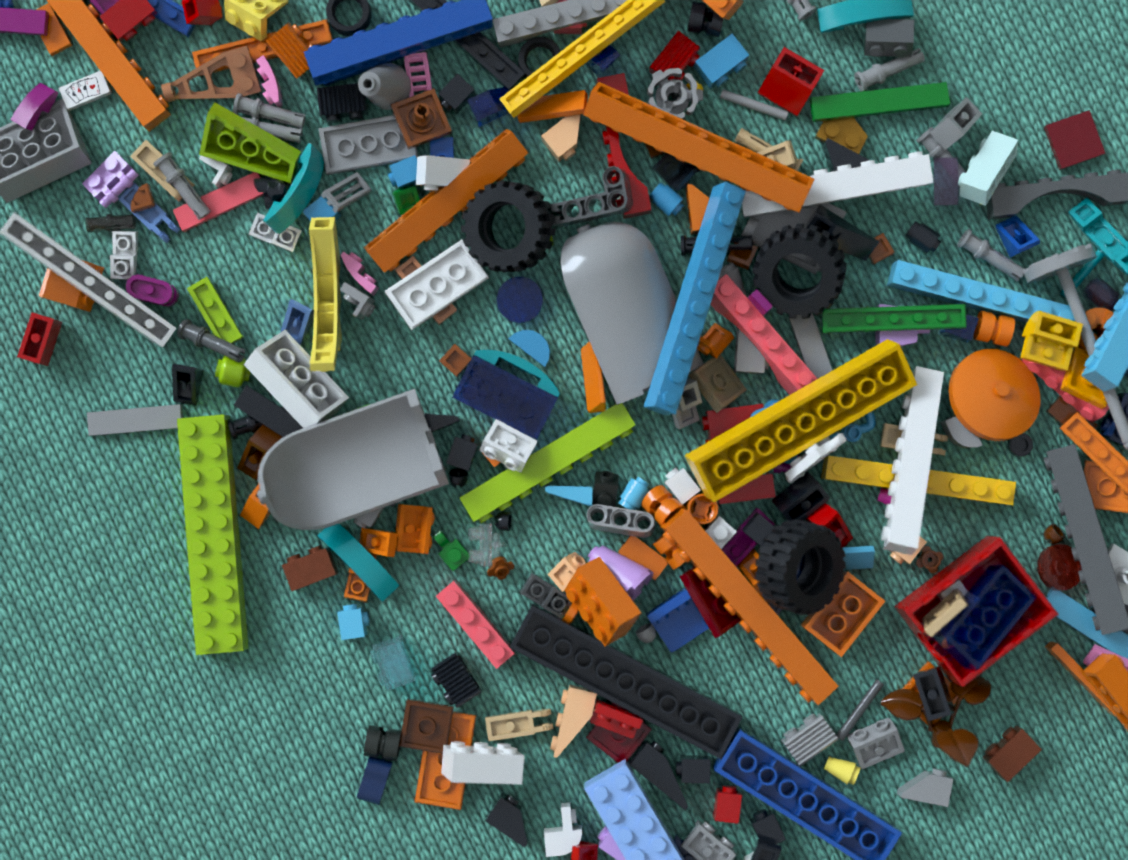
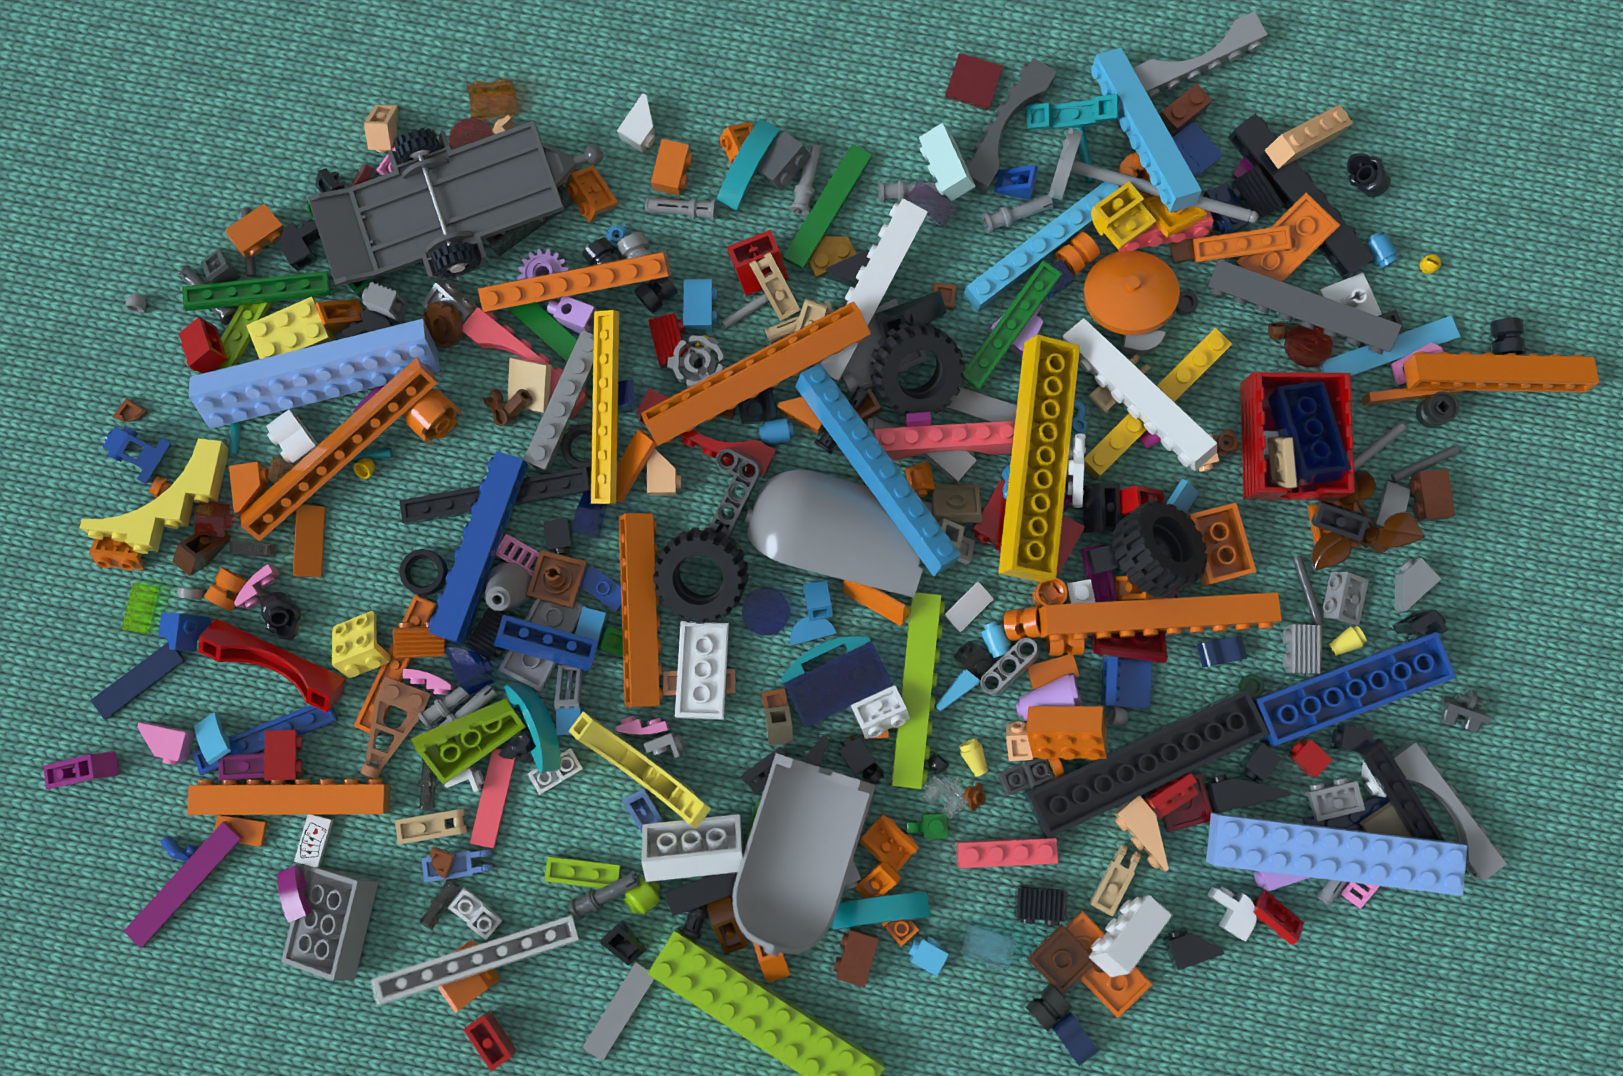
camera: 50 degrees left, 5 degrees down
(110, 179) = (399, 876): lavender plate -> none
(152, 290) = (523, 912): magenta brick -> none
(176, 177) = (446, 818): light grey pin -> none
(188, 146) = (428, 784): none -> clear smoke pin
(301, 106) = (470, 669): none -> clear blue slope
(365, 148) = (546, 643): none -> blue brick
(388, 388) = (757, 775): none -> black bracket
(438, 171) = (611, 597): white slope -> none
(439, 376) = (779, 725): none -> dark tan brick
(530, 545) = (974, 756): none -> light yellow cone
(559, 332) = (818, 600): none -> dark azure brick
(643, 454) = (968, 606): none -> white slope
(681, 484) = (1017, 595): white brick -> none
(751, 720) = (1253, 683): none -> dark green tile
(759, 676) = (1222, 651): none -> dark blue axle
(781, 110) = (775, 287): none -> tan plate
(900, 815) = (1421, 622): none -> black bracket
(923, 237) = (962, 253): black brick -> none
(956, 123) = (892, 160): light grey brick -> none
(982, 725) = (1392, 501): none -> light grey slope
(1018, 681) = (1378, 445): none -> light grey bar
(1035, 730) = (1425, 463): none -> dark grey bar
(1085, 707) = (1437, 409): none -> pearl dark grey wheel
(1101, 294) = (1113, 151): brick -> none

